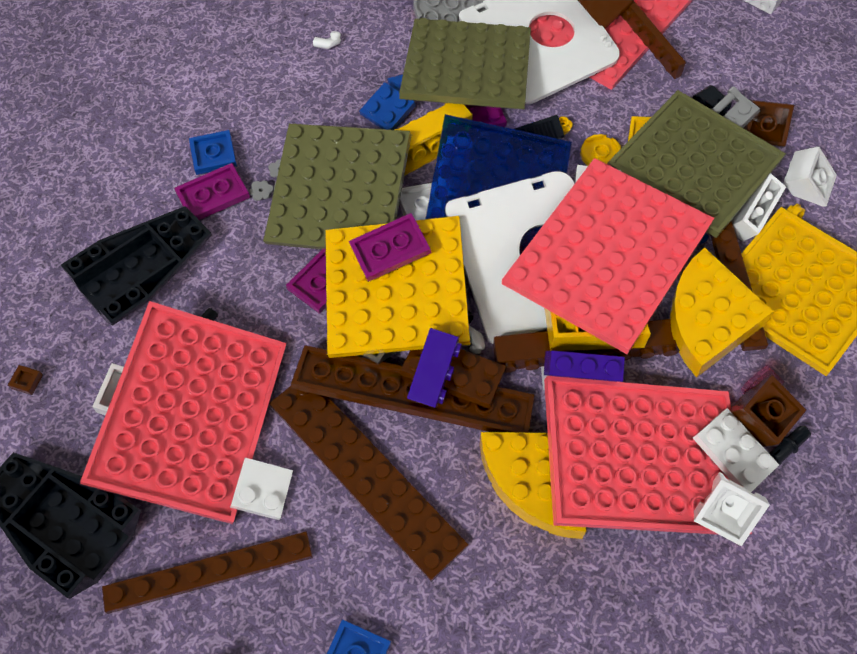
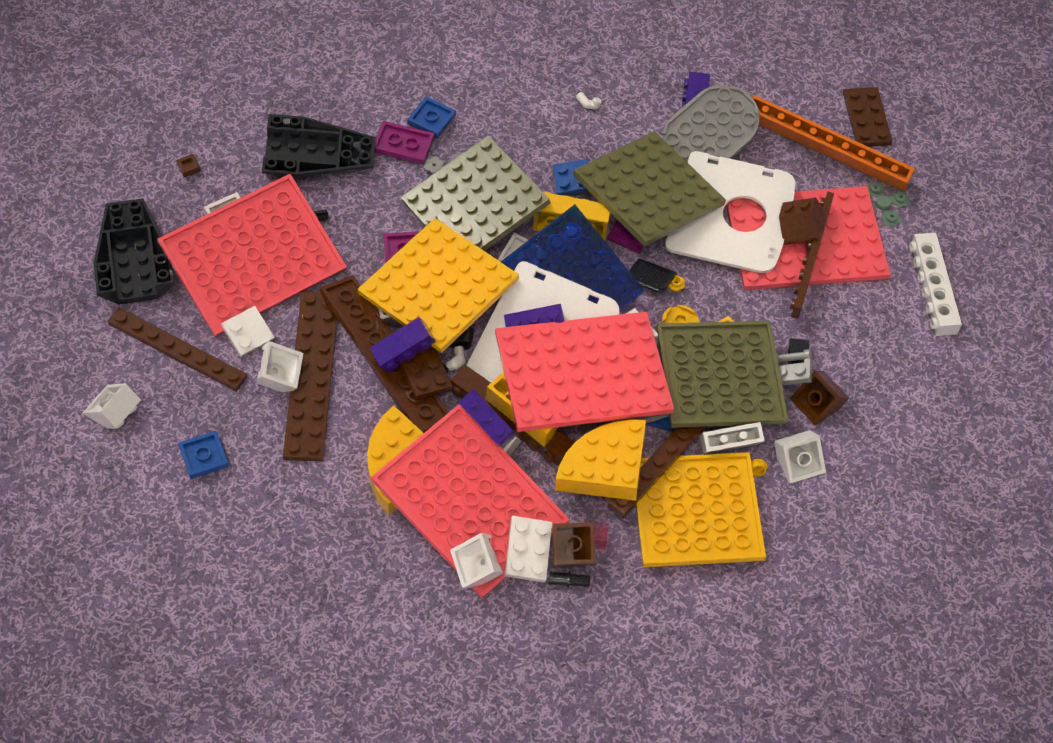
camera: 40 degrees right, 5 degrees down
(337, 495) = (279, 367): none -> white brick
(390, 247) = (454, 256): magenta plate -> none
(515, 244) = (535, 316): none -> dark purple brick

